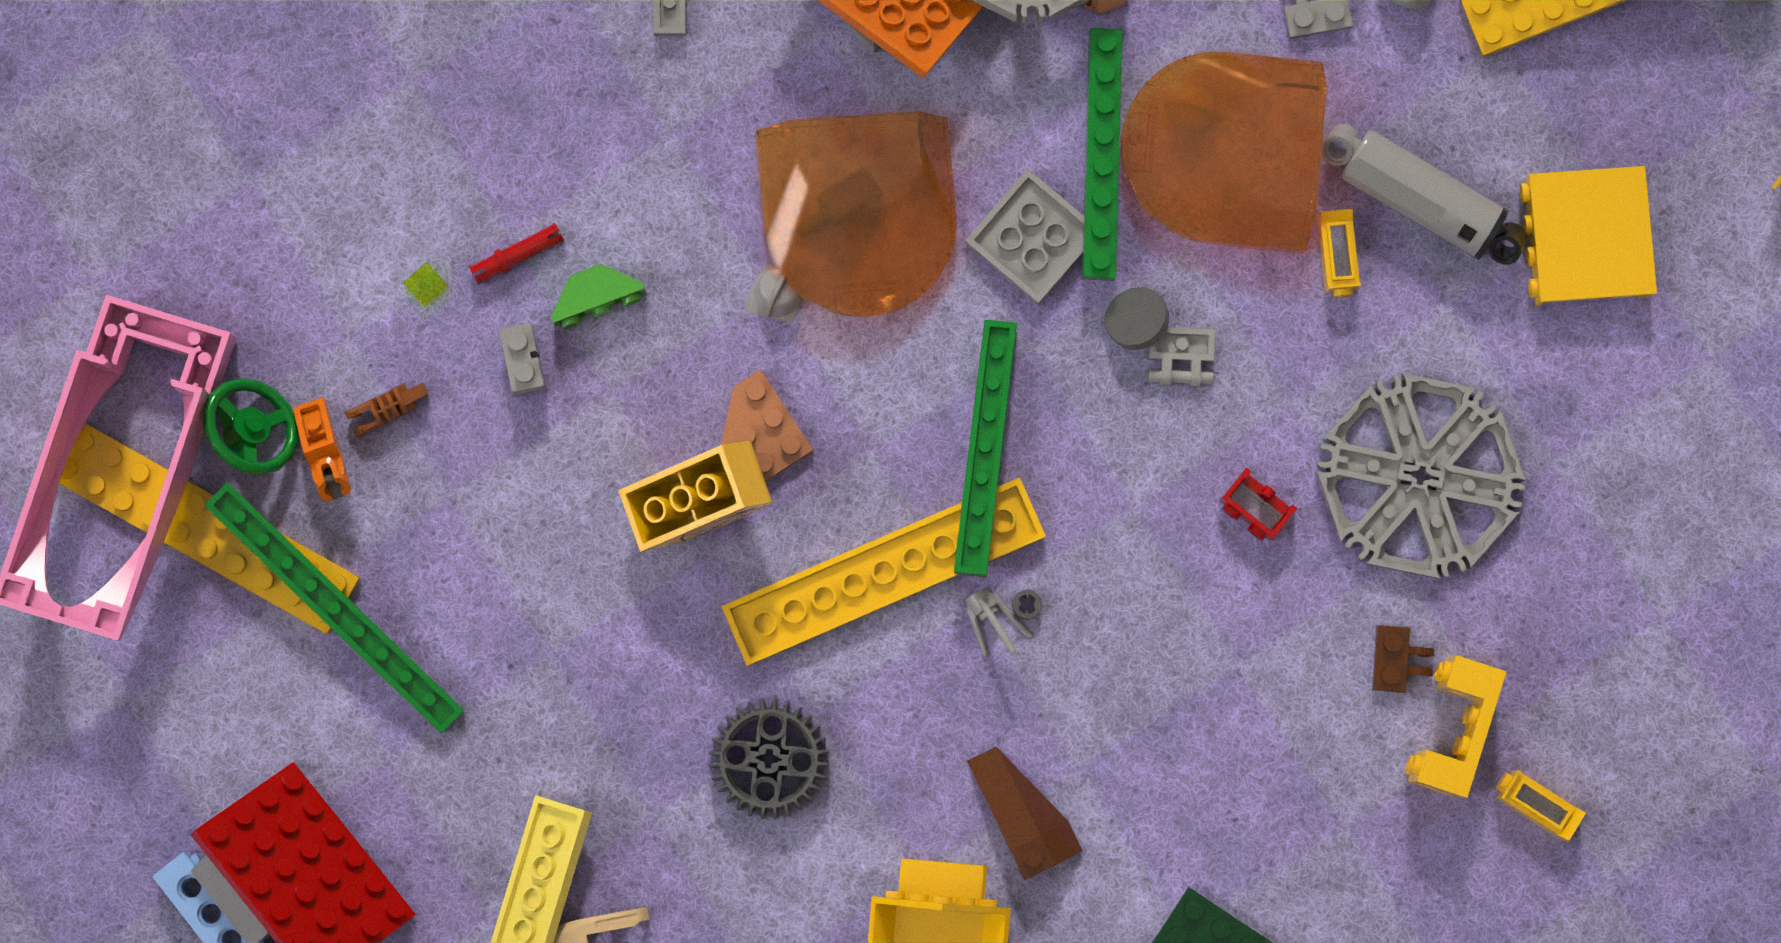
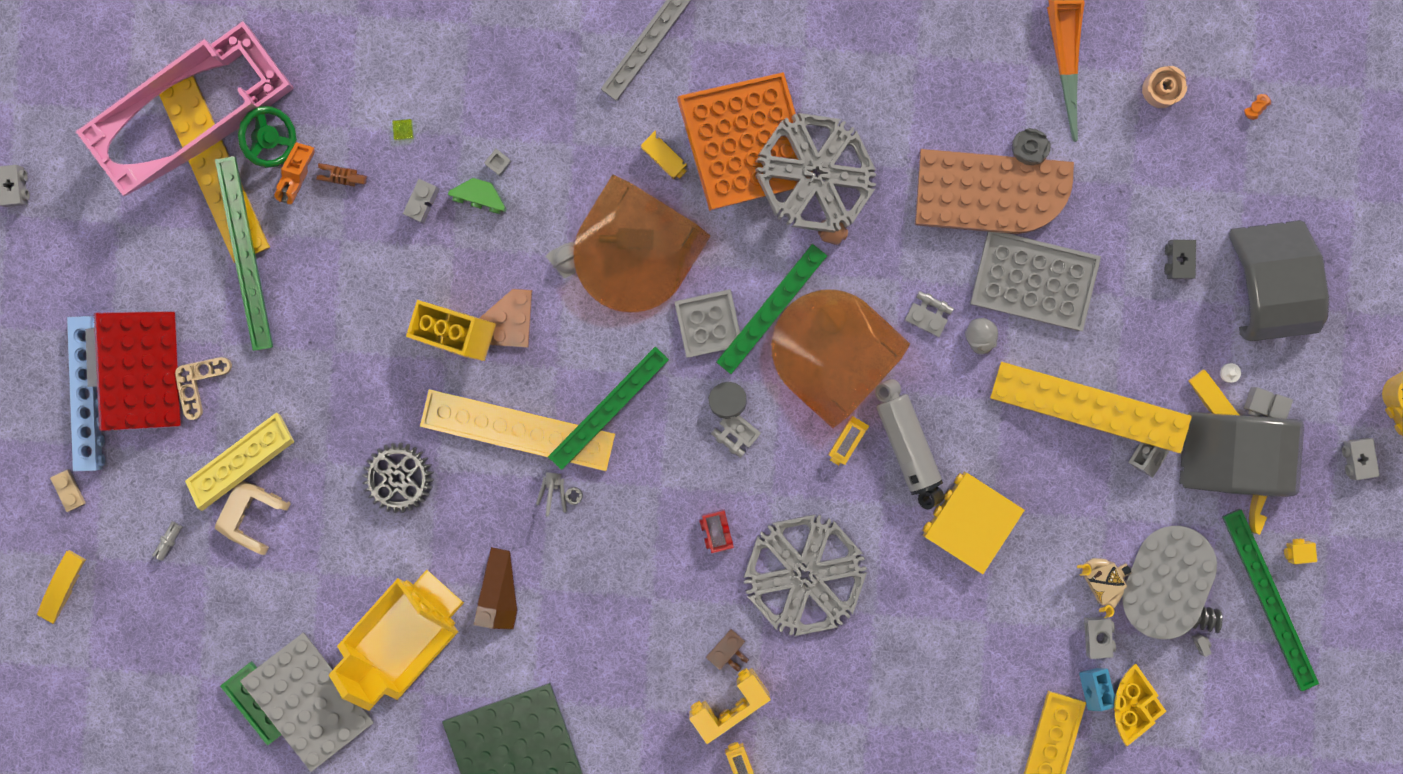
camera: 40 degrees right, 5 degrees up
(385, 830) = (194, 375): none -> tan beam
(516, 253) = (457, 147): red pin -> none
(586, 232) = (497, 162): none -> light grey plate
(806, 59) = (664, 156): none -> yellow window

